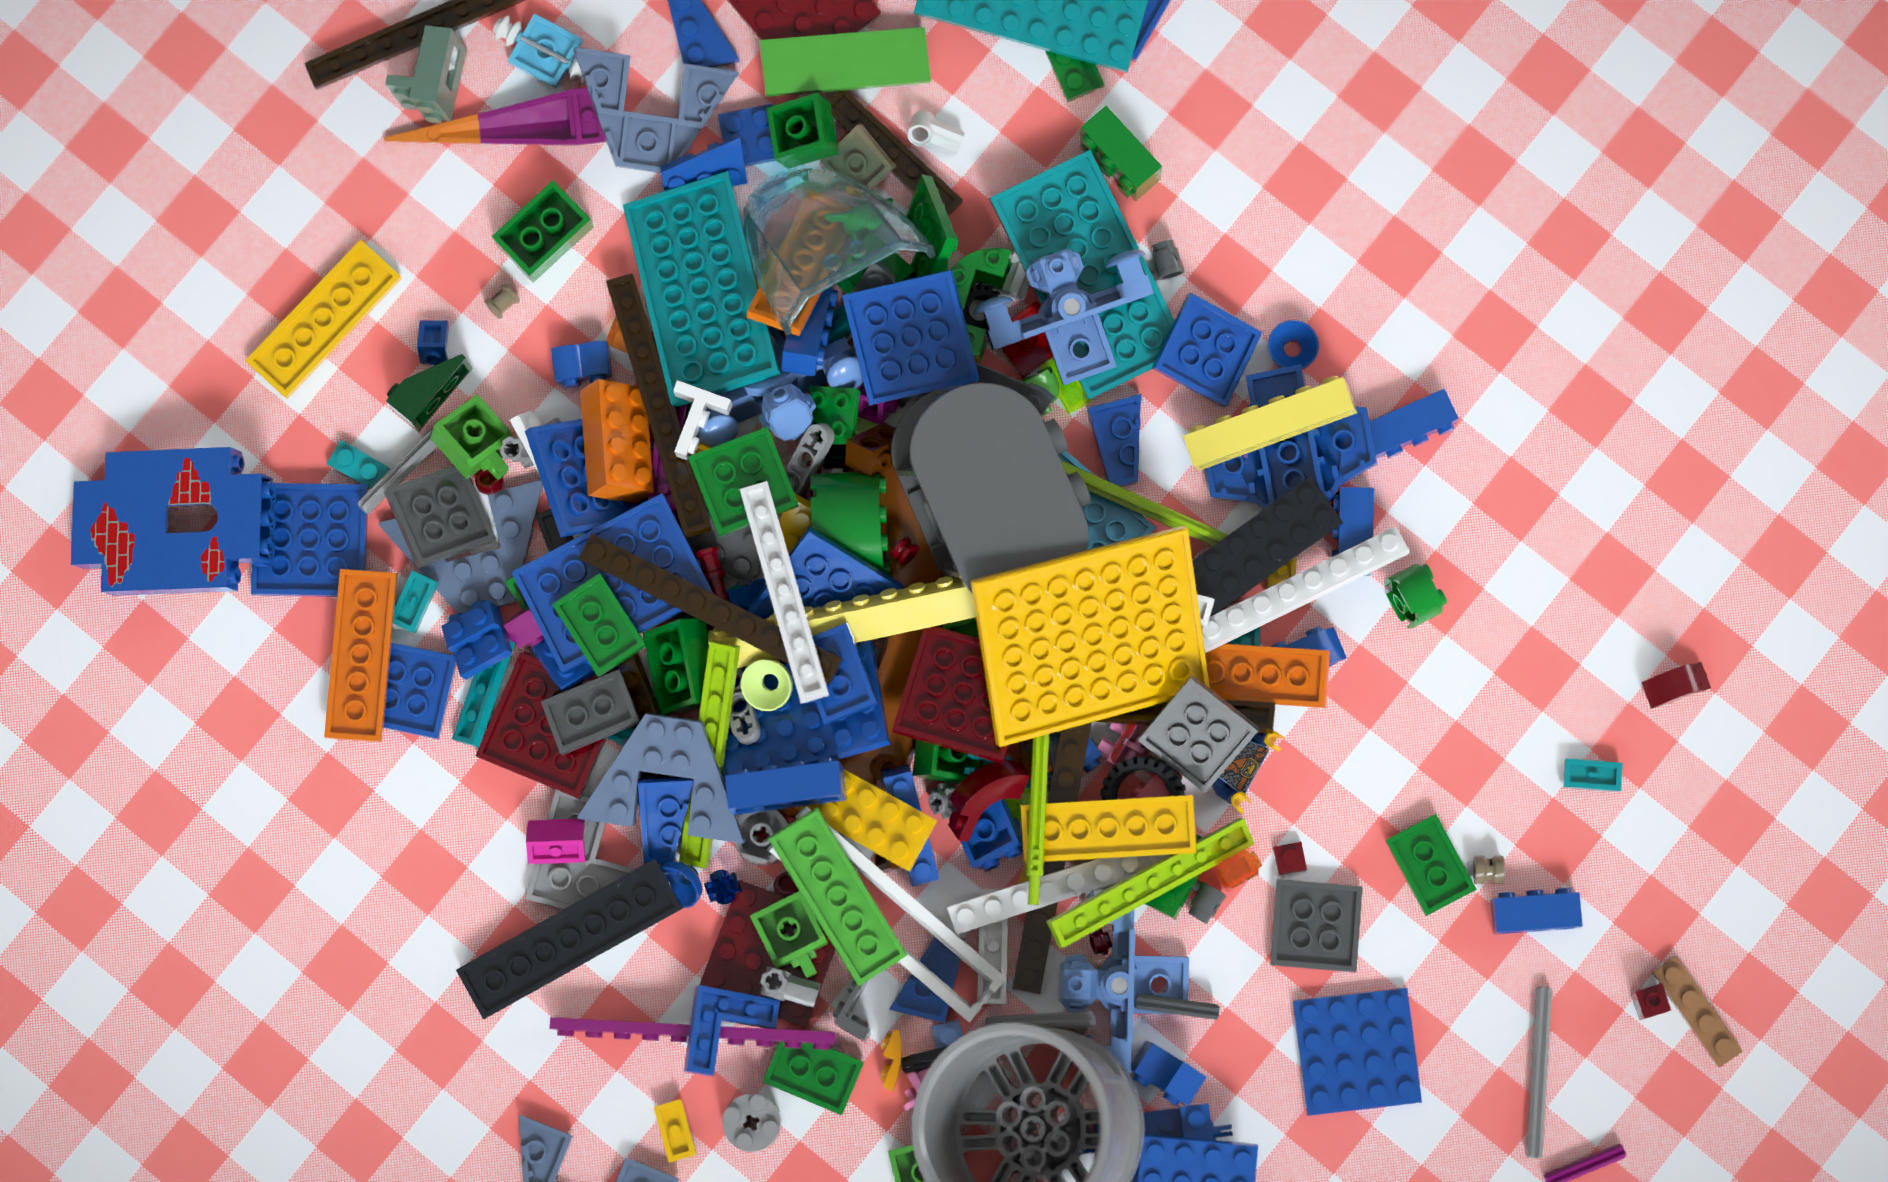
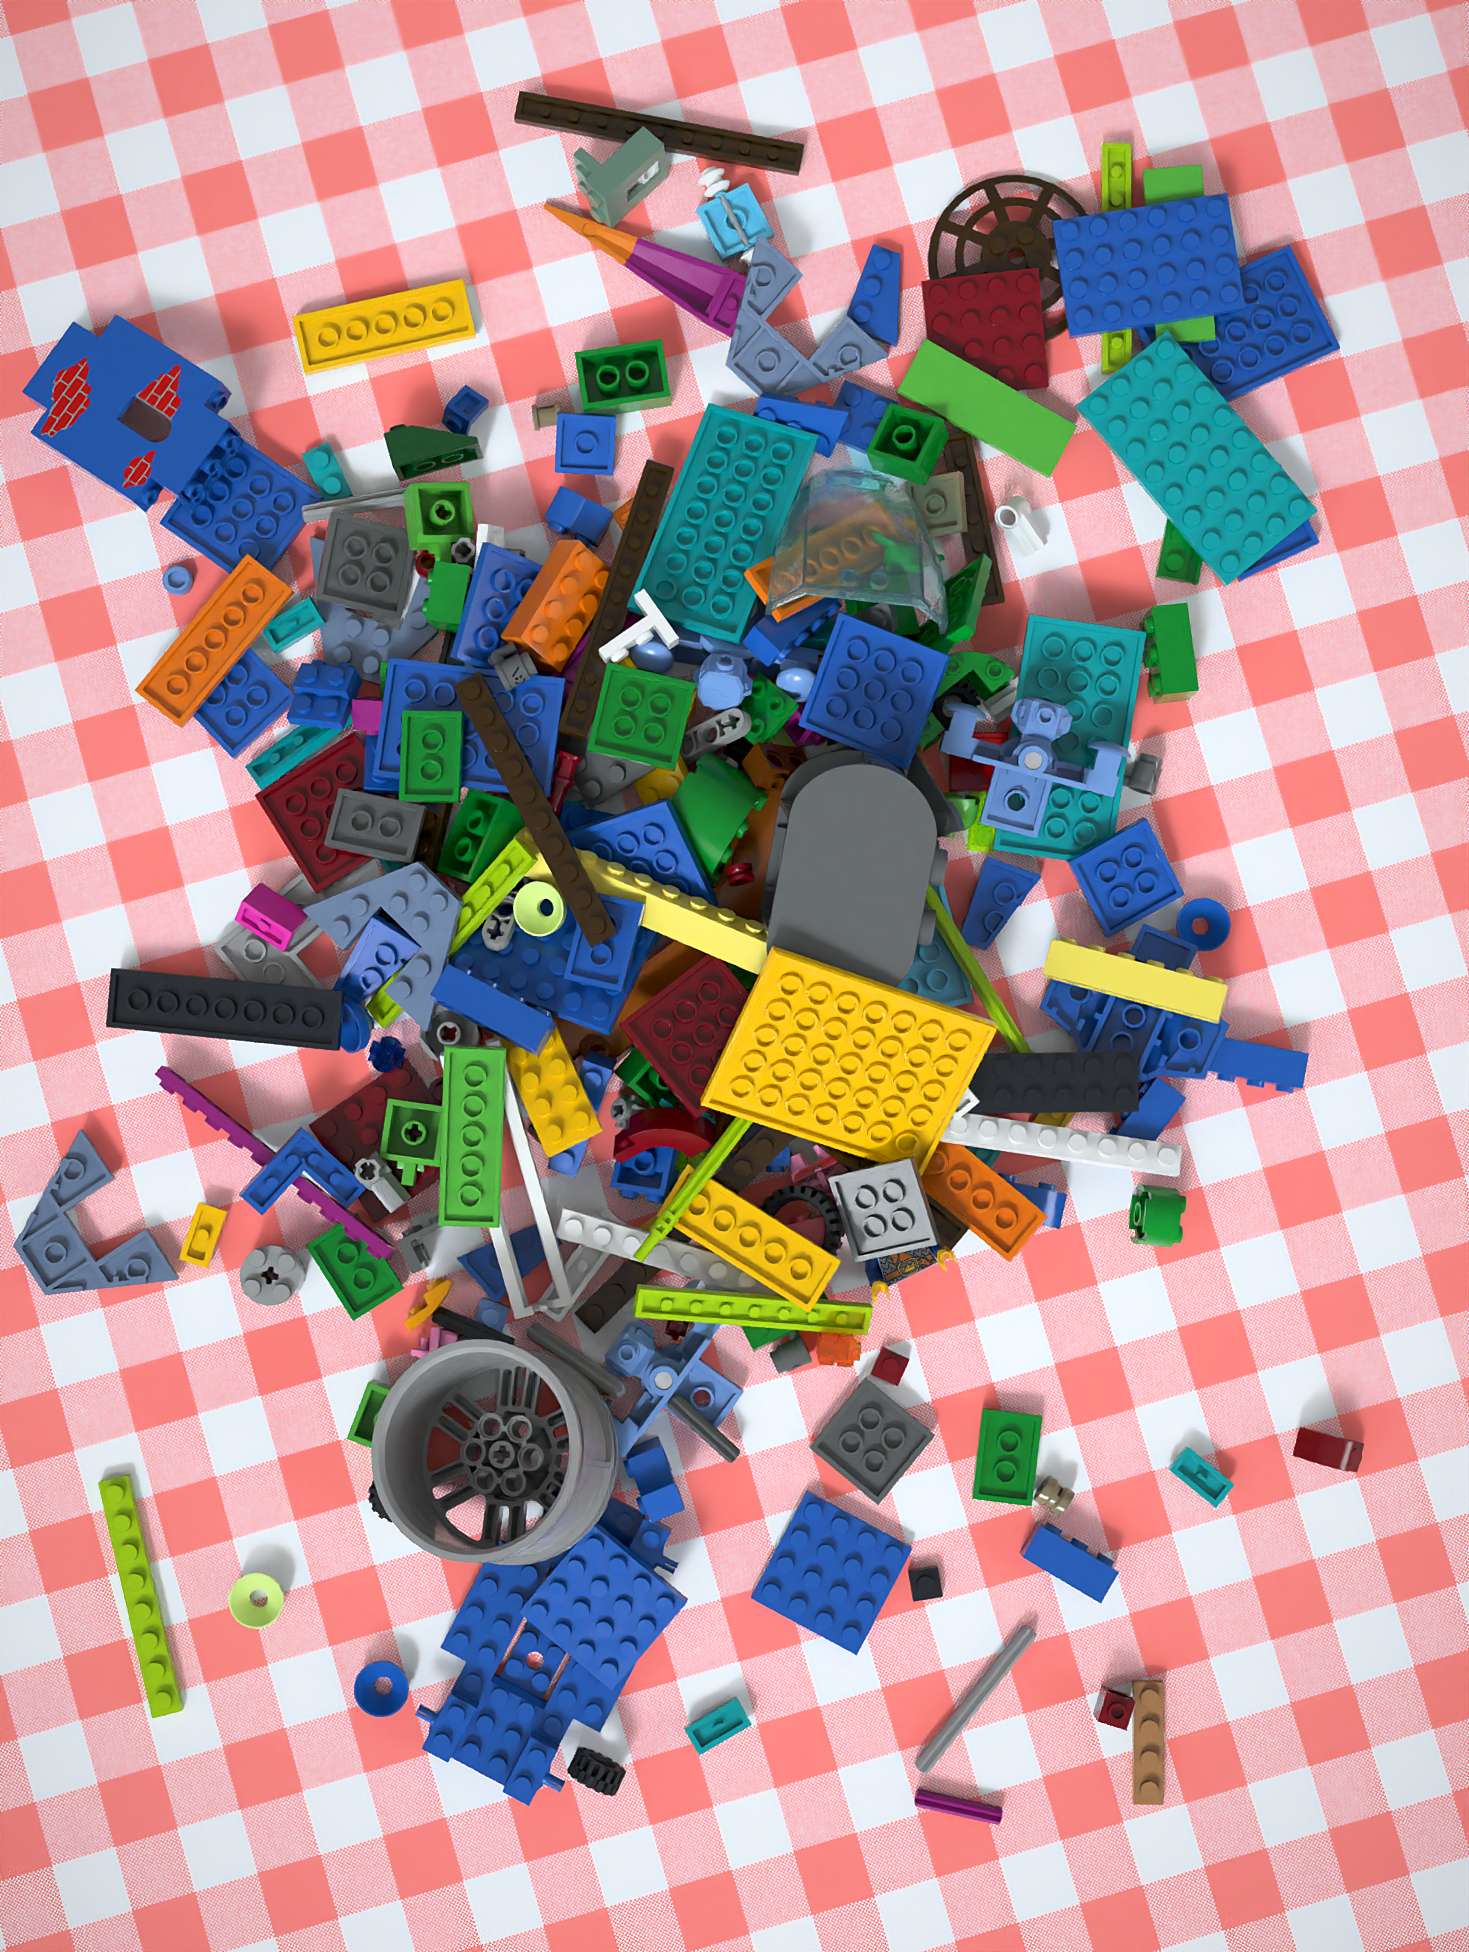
camera: 25 degrees right, 5 degrees up
(295, 630) = (177, 580): none -> medium blue tile
(526, 492) = (447, 595): none -> green brick
(547, 302) = (585, 443): none -> blue plate
(618, 513) = (514, 669): none -> dark grey piece
(784, 592) = (606, 840): white plate -> none
(1436, 1009) = (925, 1583): none -> black plate

